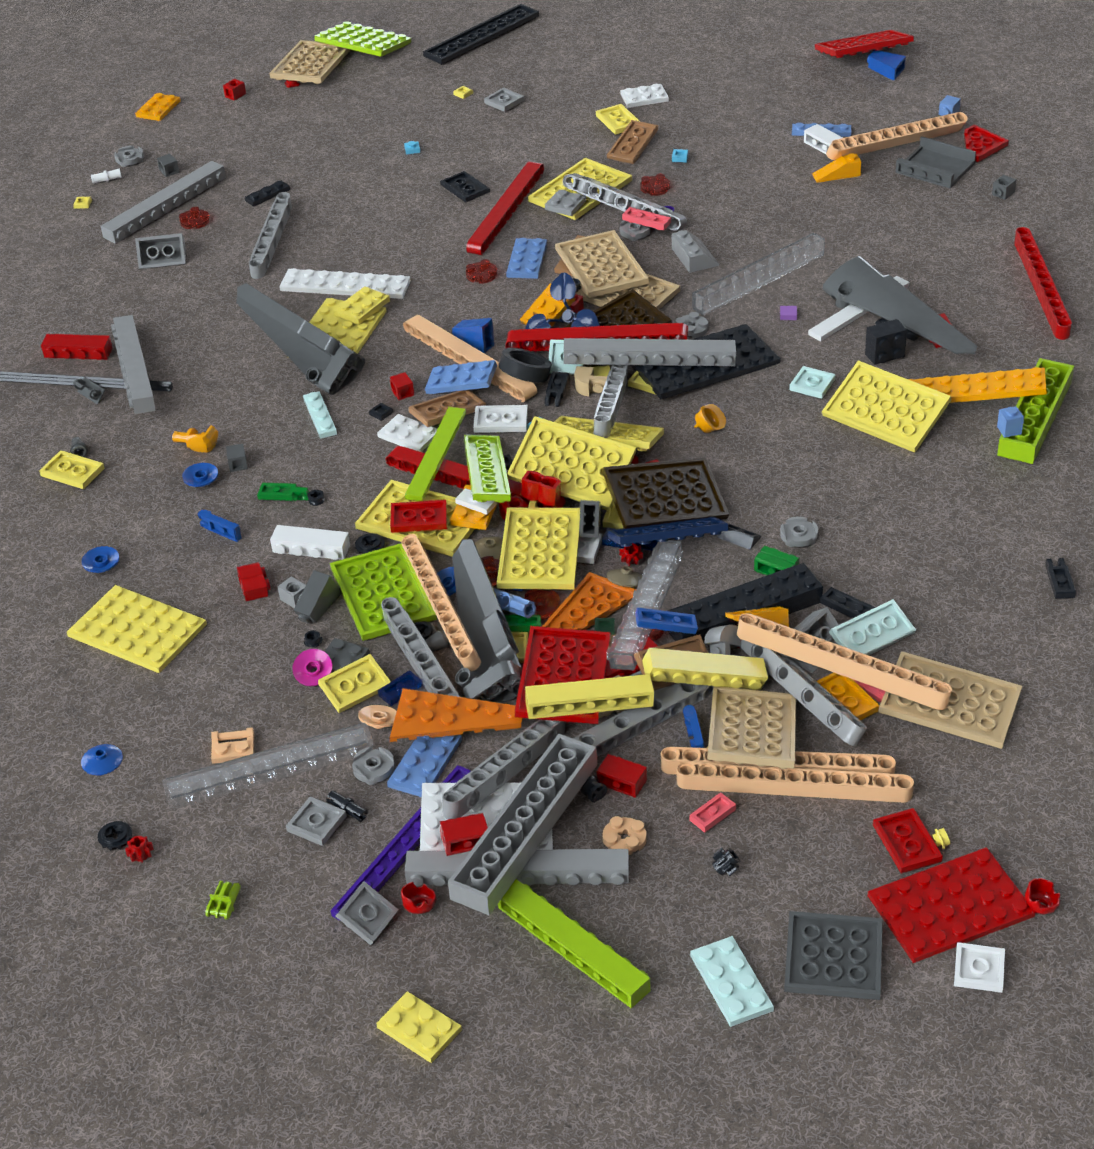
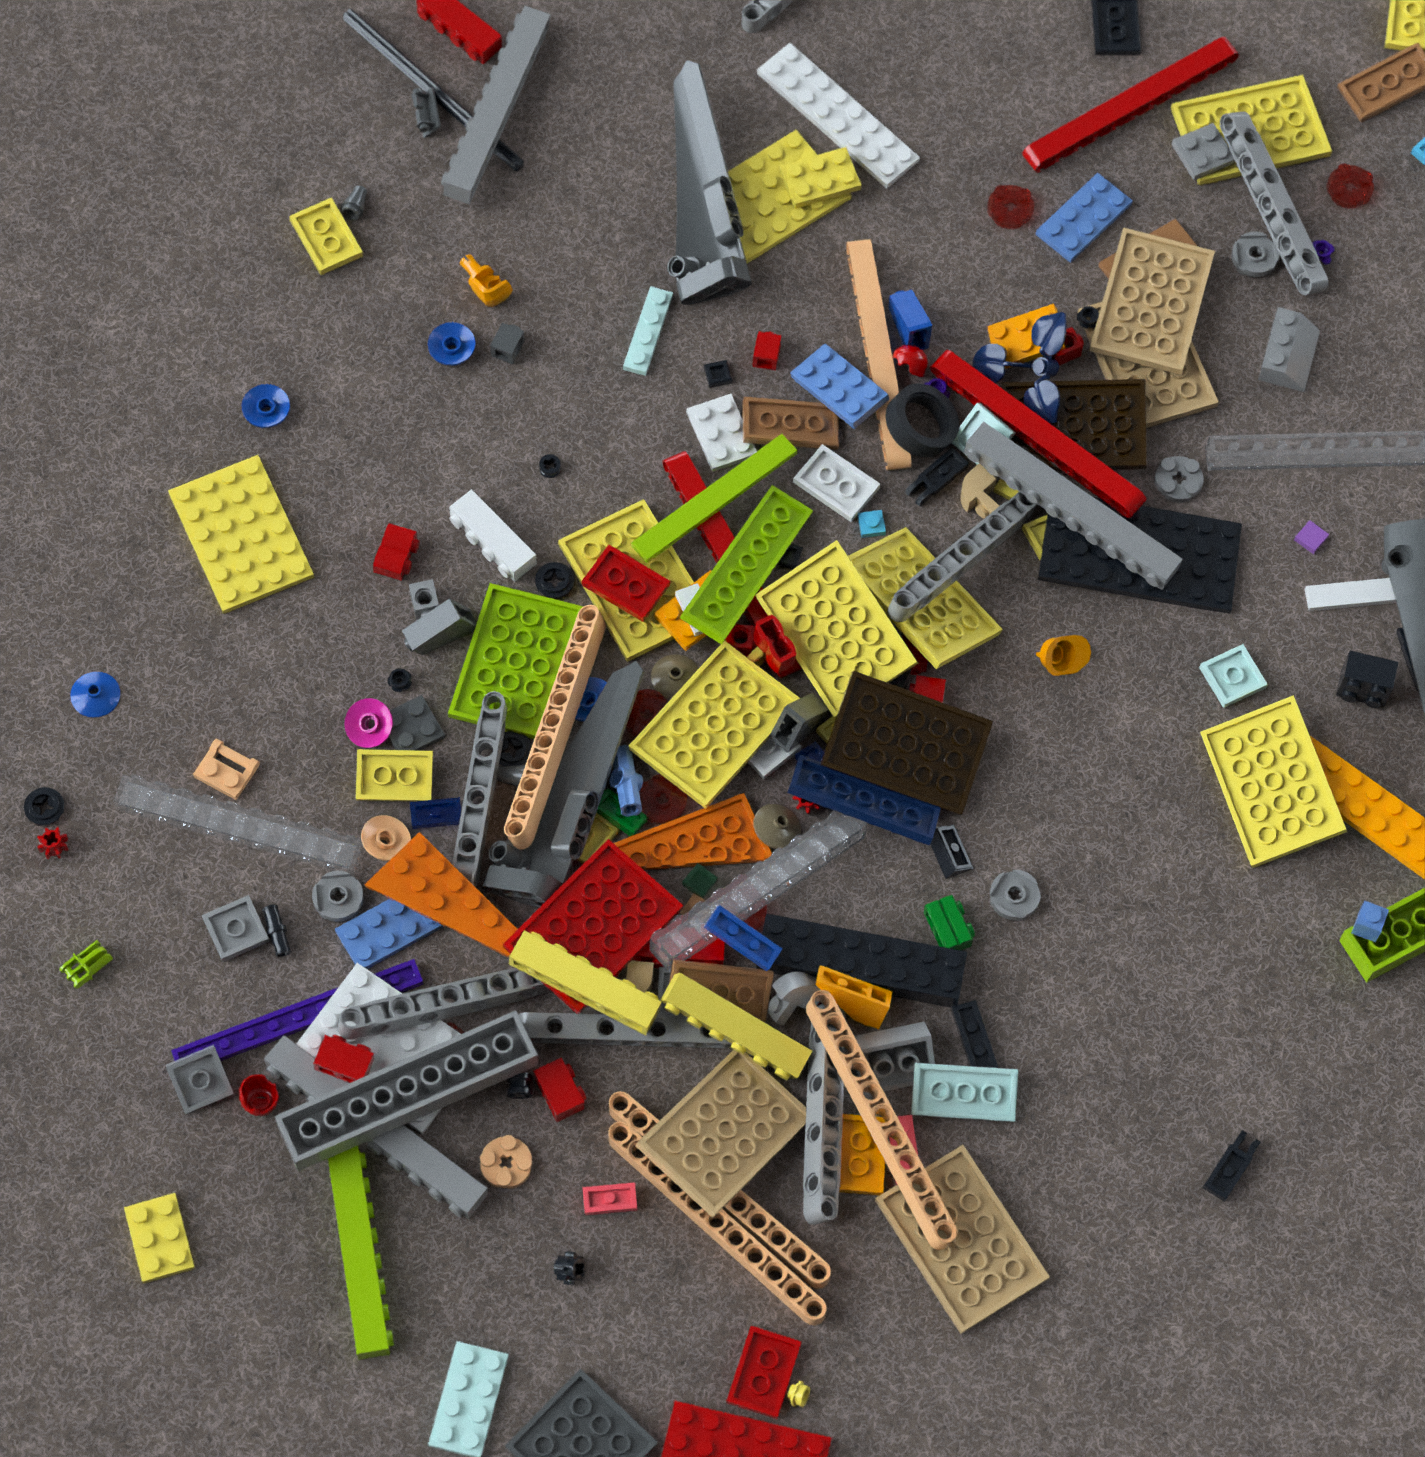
camera: 30 degrees right, 25 degrees up
(219, 525) = (419, 439): blue hinge -> none
(282, 491) = (518, 432): green hinge -> none
(491, 346) = (913, 357): none -> red hair
(646, 218) = (1274, 254): coral plate -> none
(693, 727) = (675, 1085): blue hinge -> none

